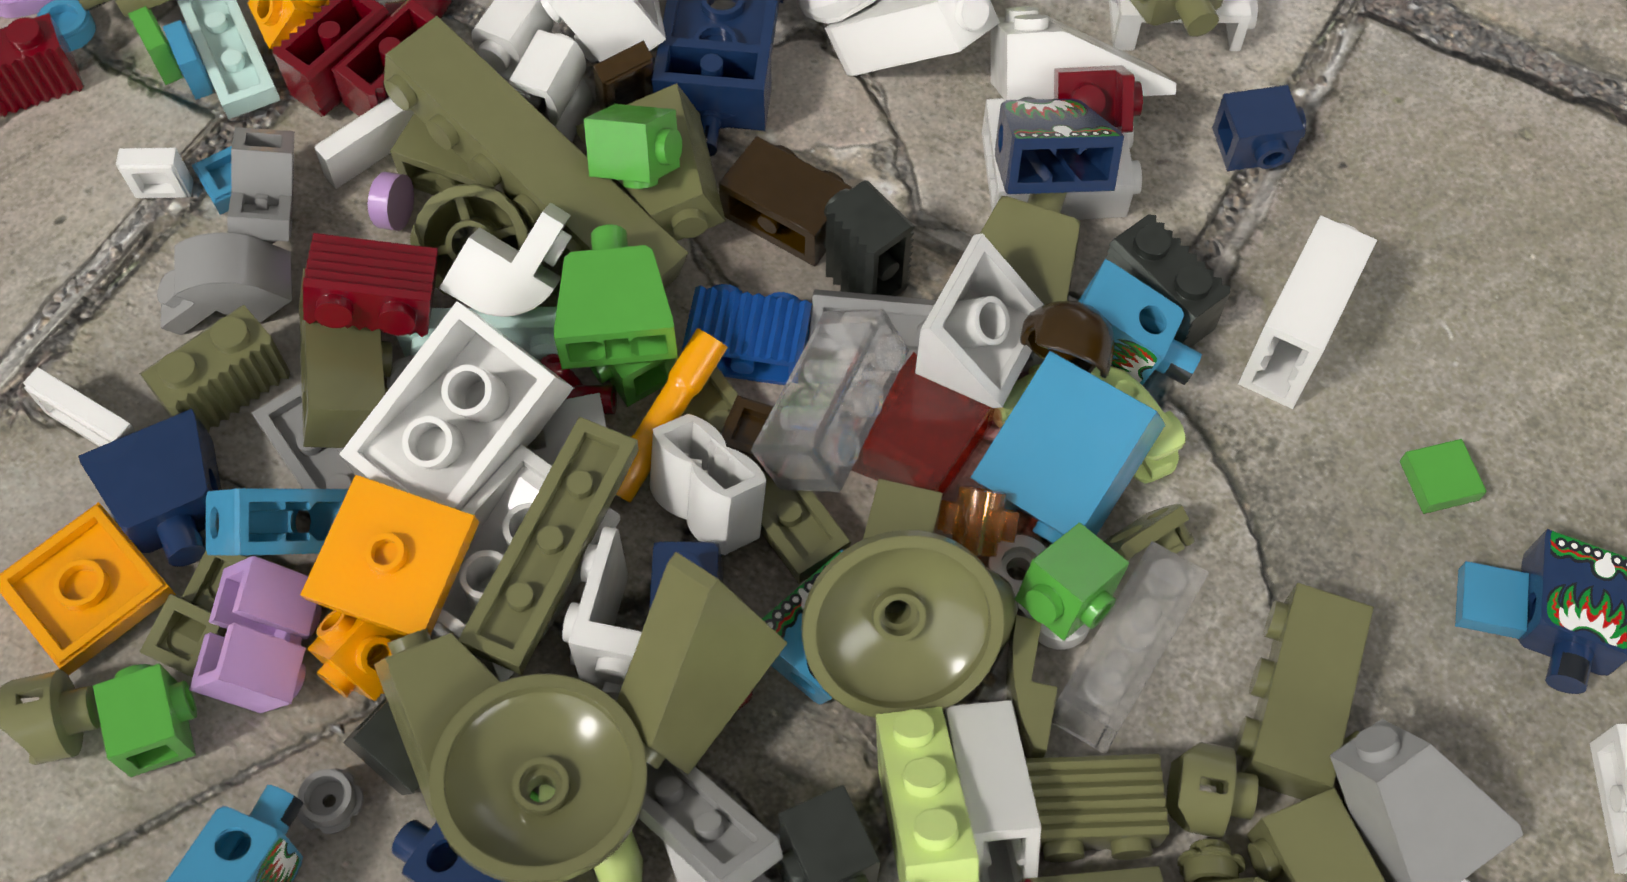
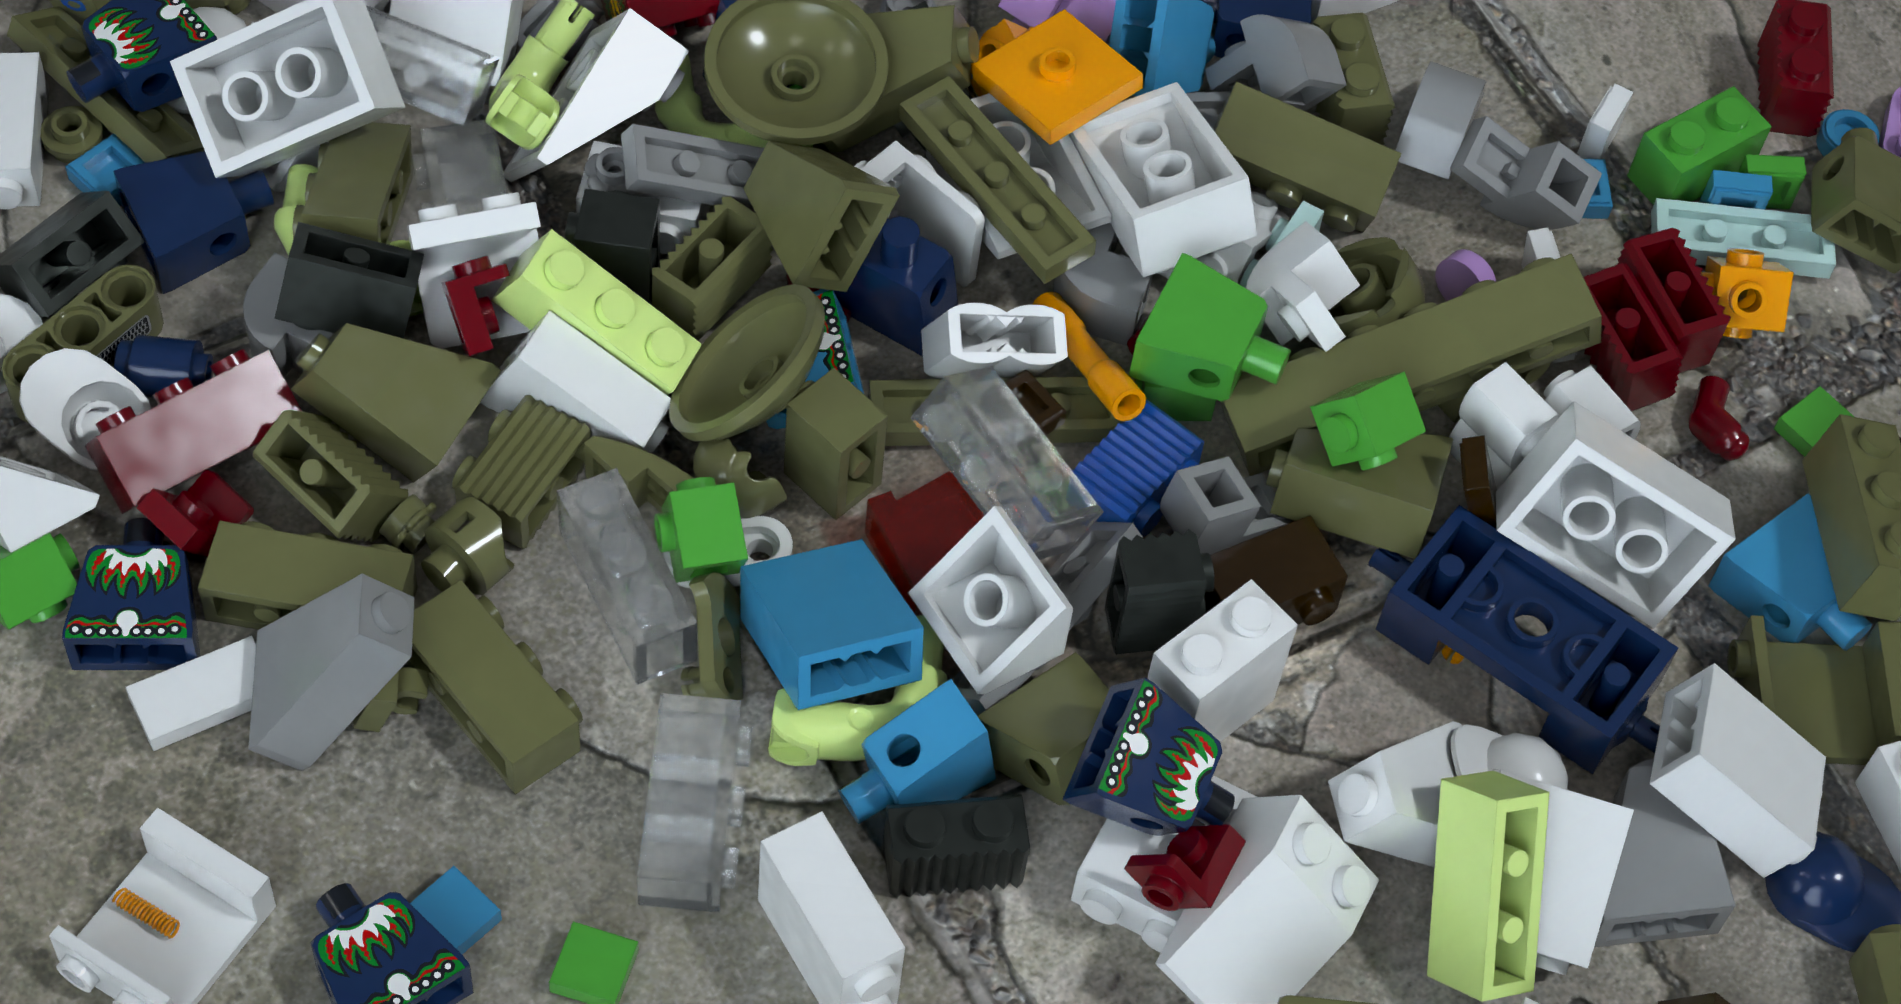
camera: 115 degrees right, 5 degrees down
(150, 96) = (1683, 152): none -> bright green brick
(233, 402) = (1282, 60): none -> light grey brick
(369, 284) = (1343, 174): dark red brick -> none
(754, 247) = (1219, 505): none -> light grey brick
(777, 764) = (711, 267): none -> olive brick
(921, 161) = (1227, 660): none -> white brick
(978, 520) = (814, 513): clear orange gear -> none
(1071, 332) = (922, 651): dark brown hair -> none
(1275, 478) = (693, 803): none -> clear brick

